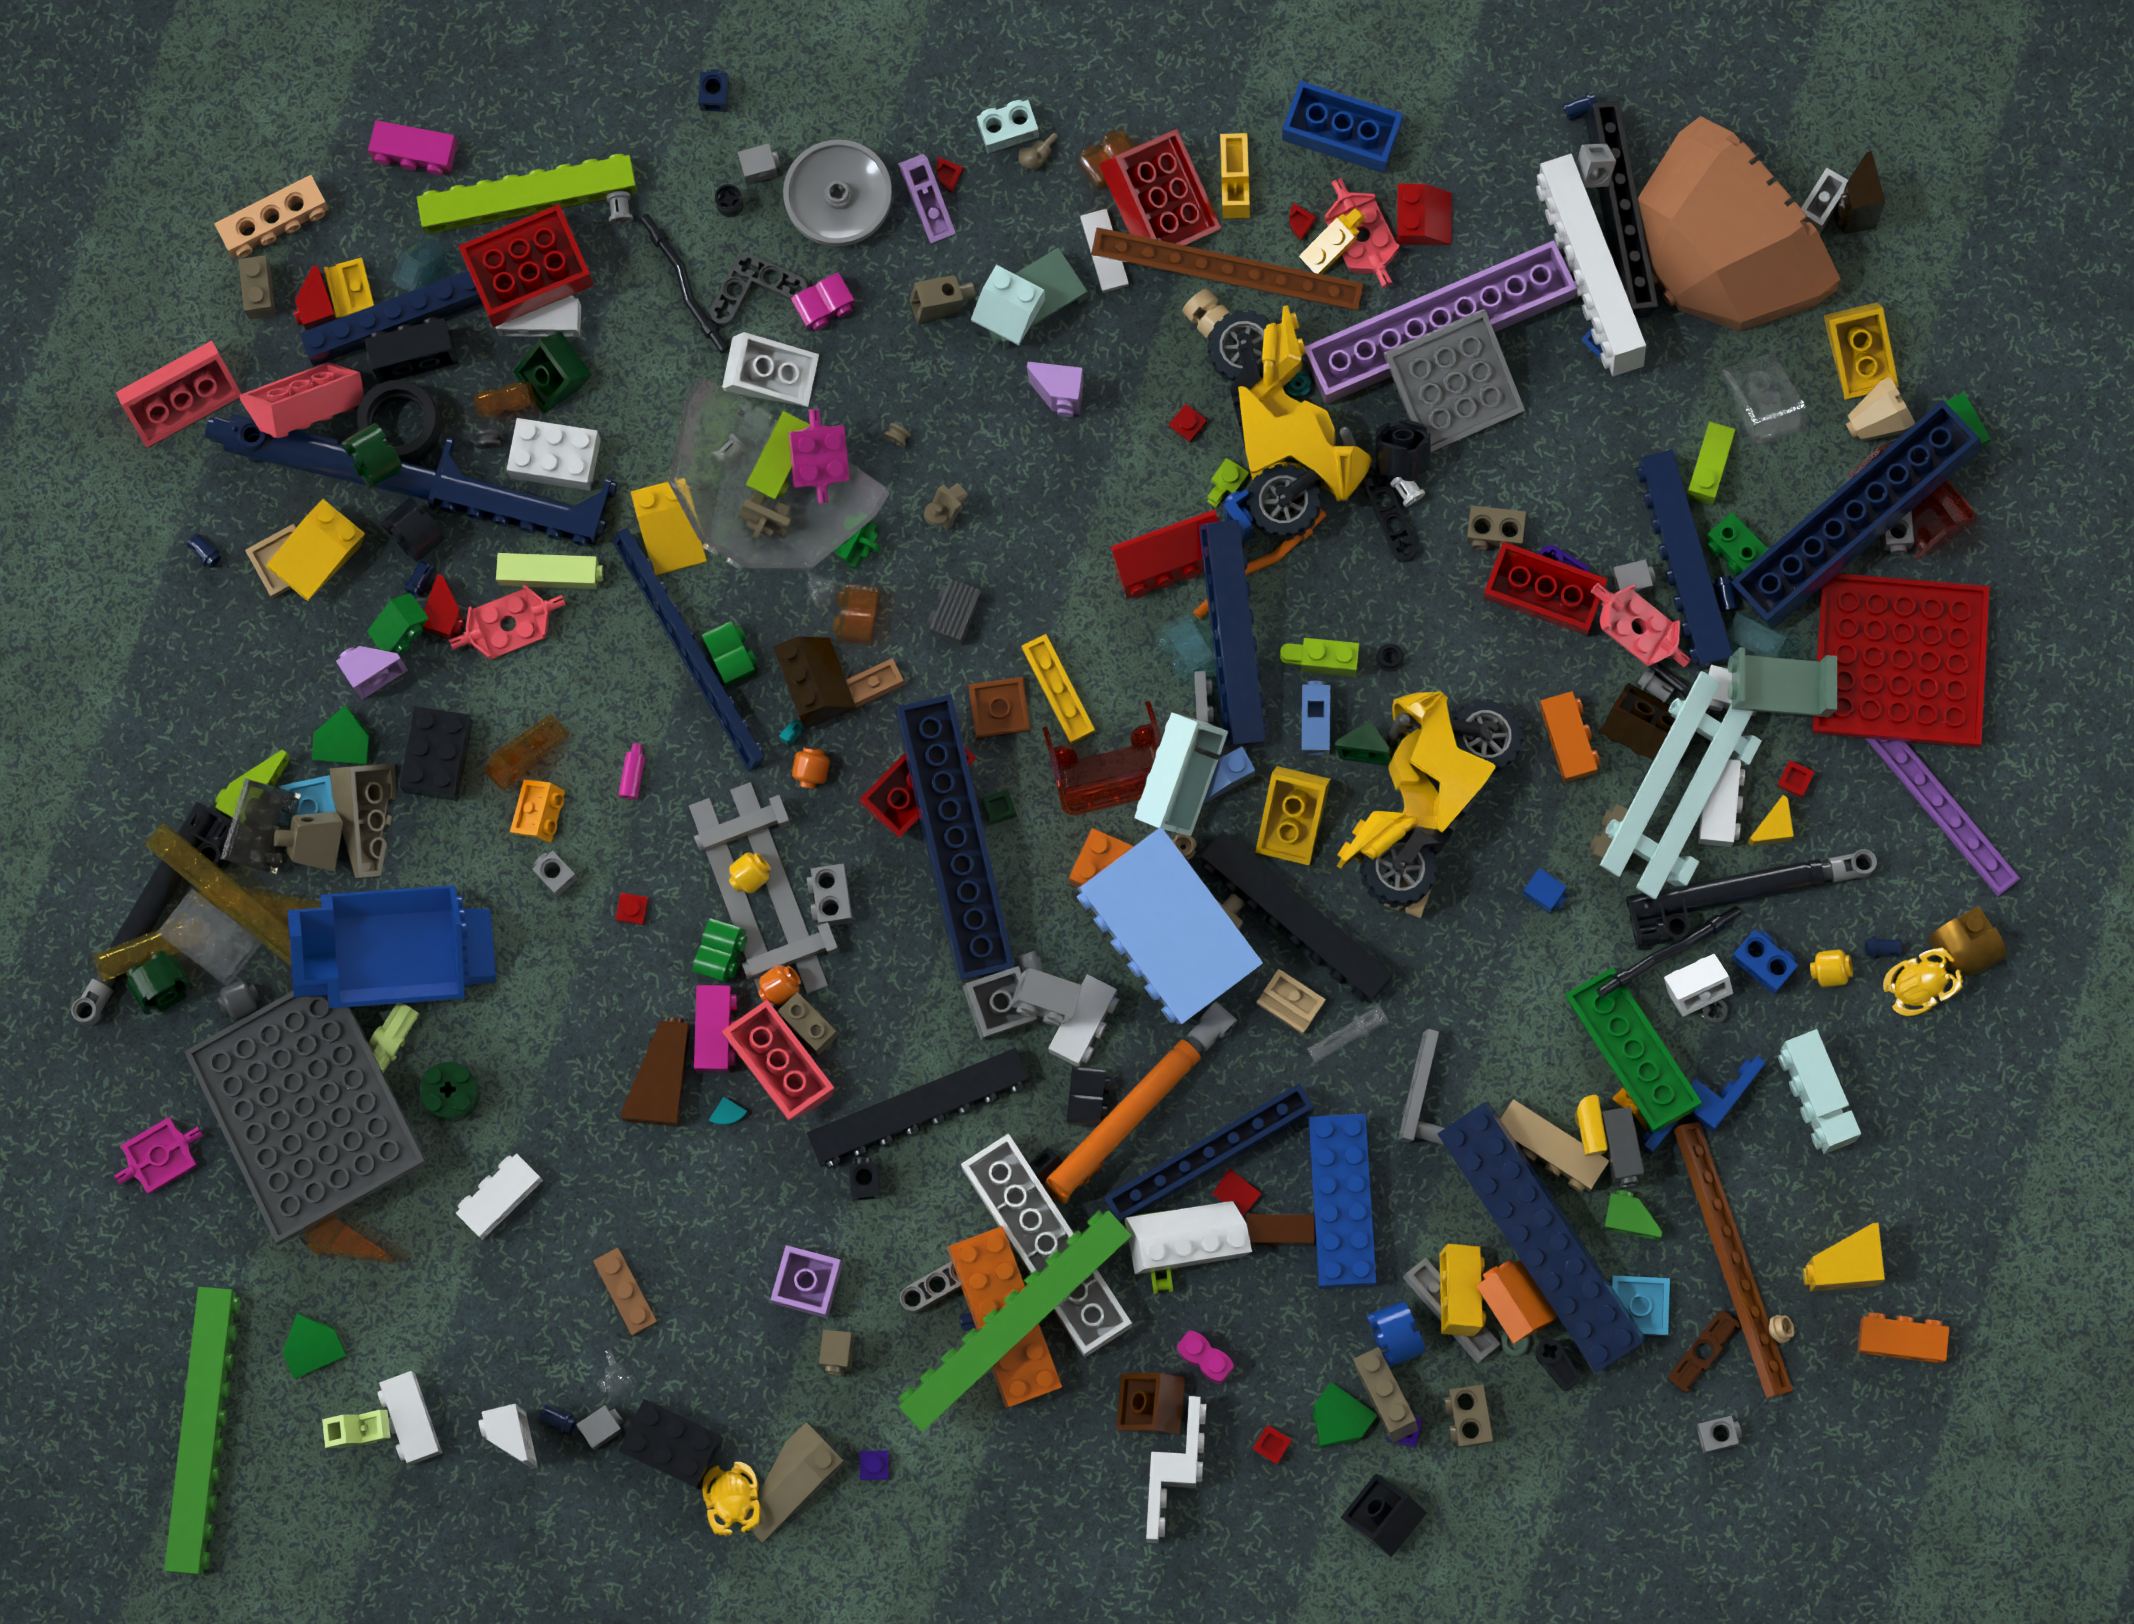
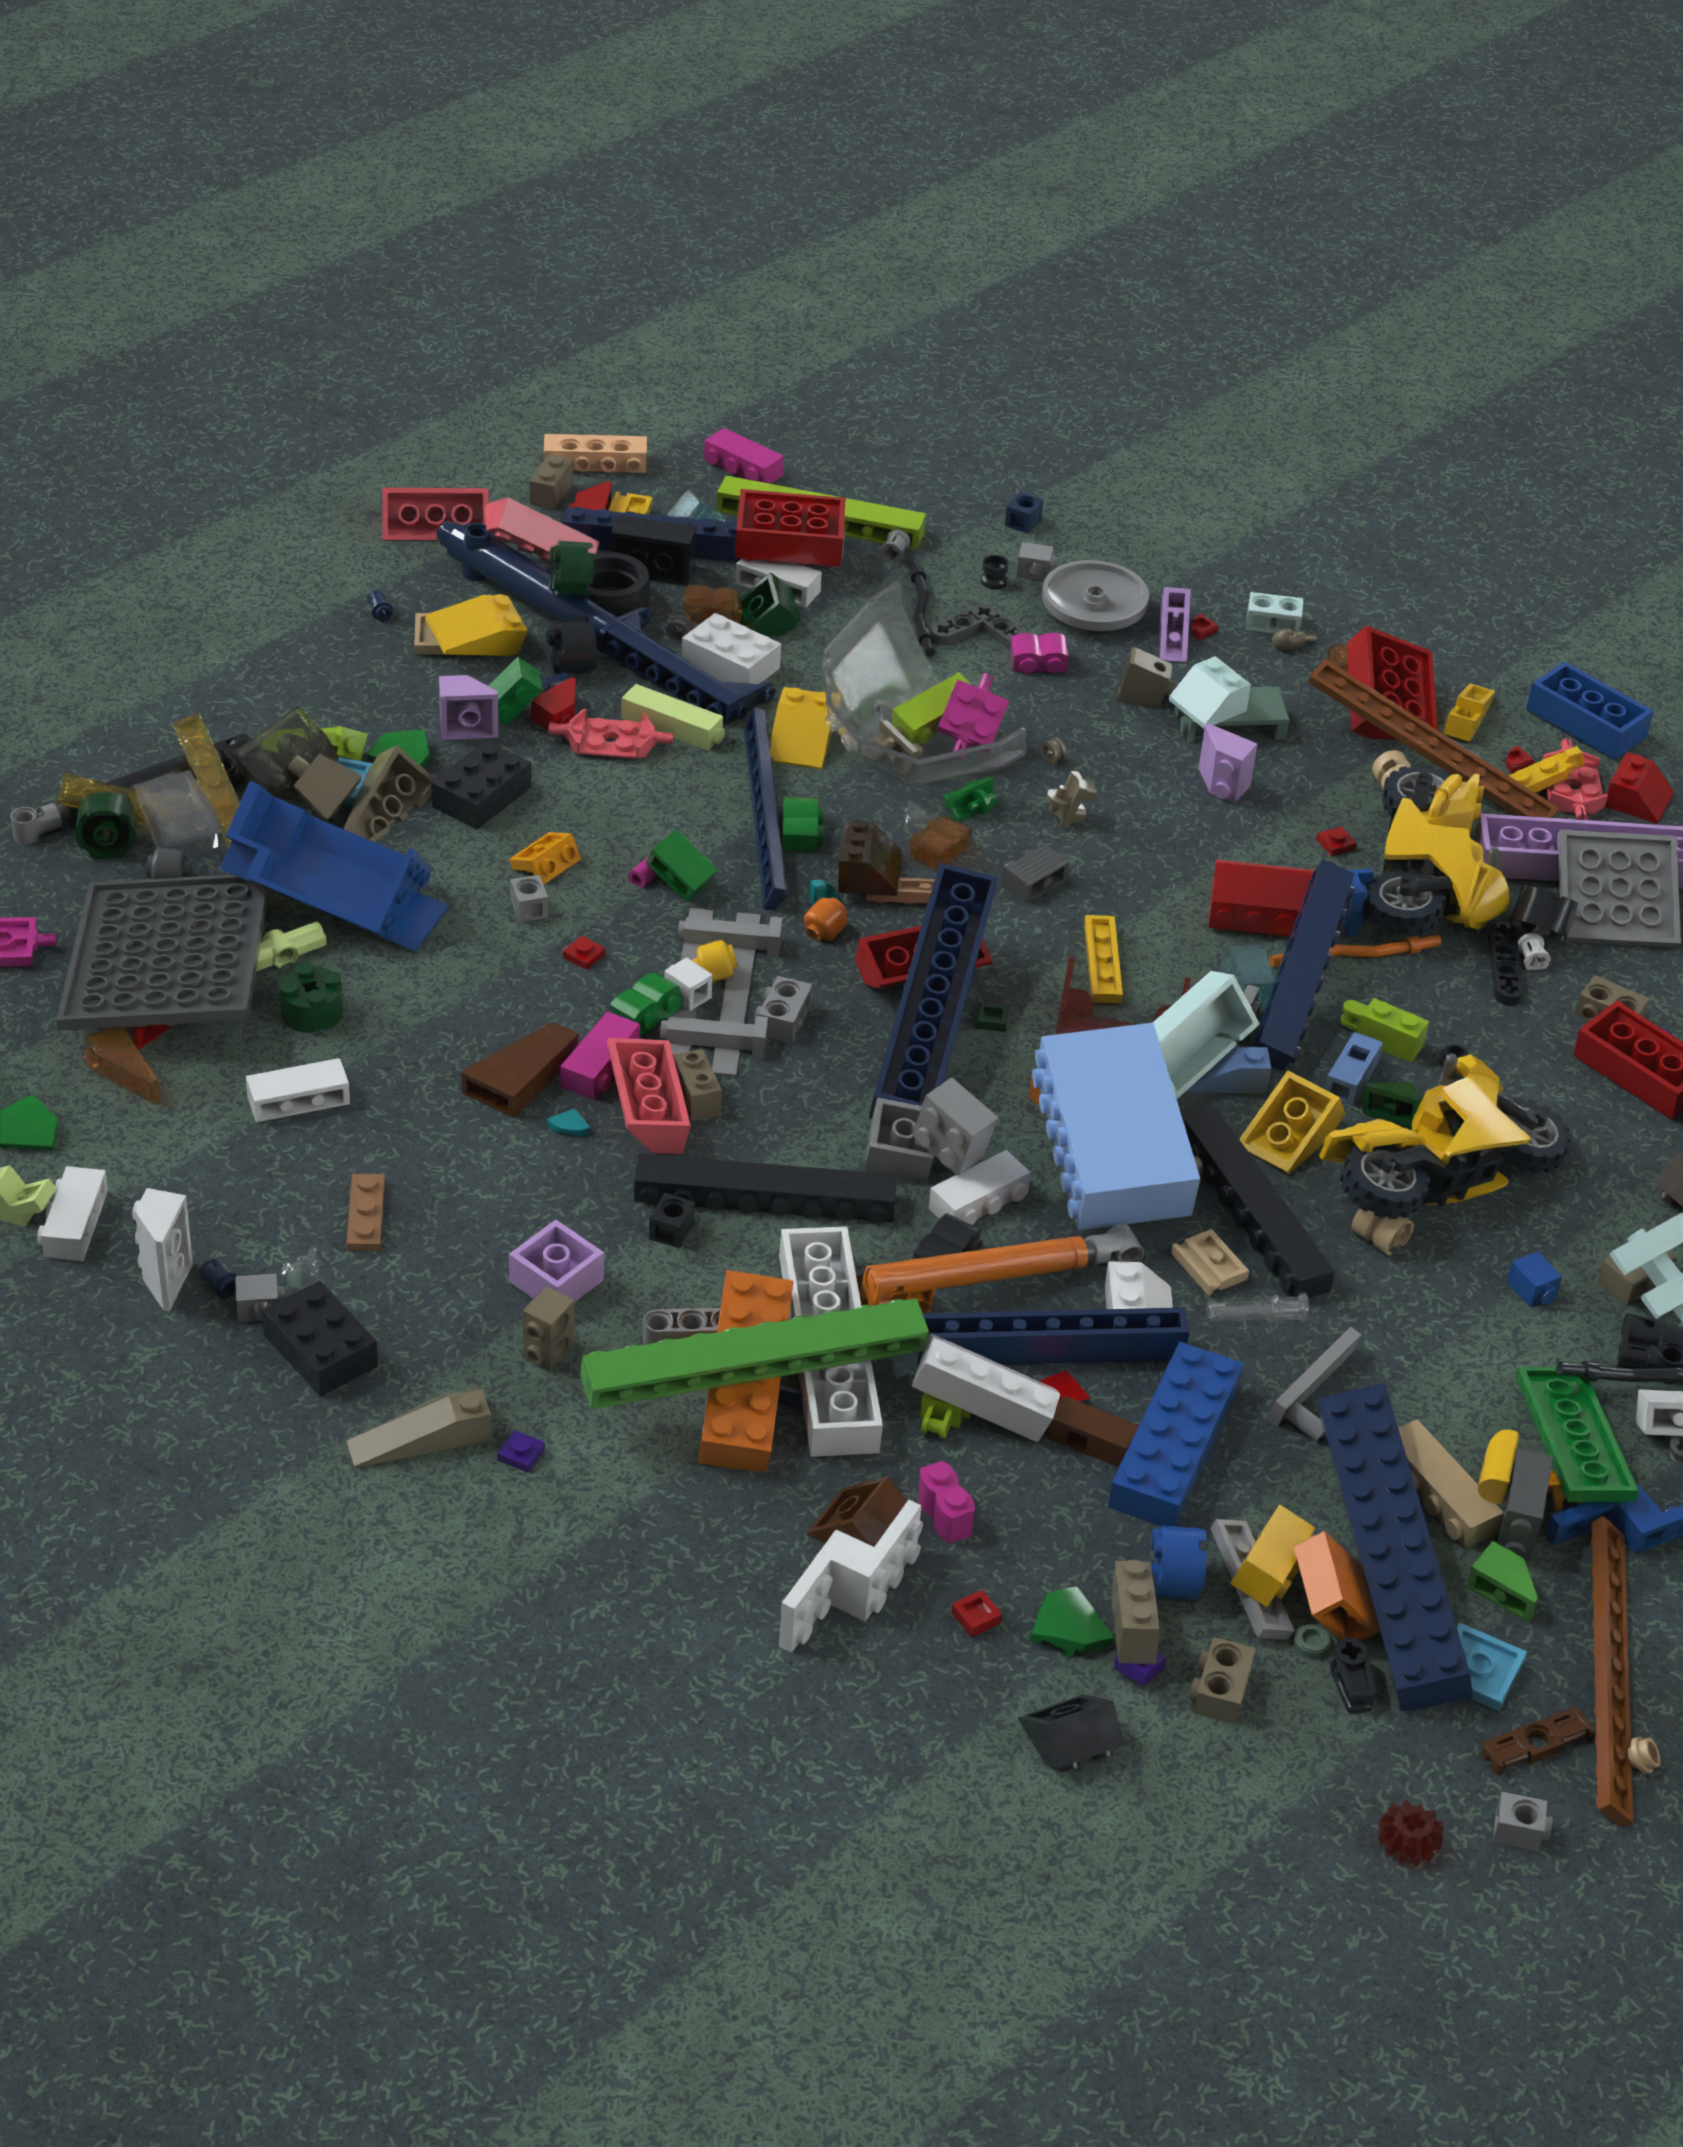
camera: 15 degrees right, 35 degrees down
(292, 765) = (348, 742): none -> lime plate
(524, 752) = (554, 812): clear orange slope -> none
(663, 773) = (681, 865): none -> green brick
(731, 1498) = (349, 1407): yellow shield -> none
(740, 911) = (693, 982): none -> white brick
(770, 370) = (958, 654): white slope -> none
(779, 985) = (689, 1039): orange head -> none
(999, 707) = (1036, 953): dark orange tile -> none
(1109, 271) = (1318, 717): white tile -> none
(1256, 1075) = (1135, 1286): none -> white slope
(1569, 737) = (1618, 1177): orange brick -> none
(1640, 1476) = (1410, 1833): none -> clear red gear

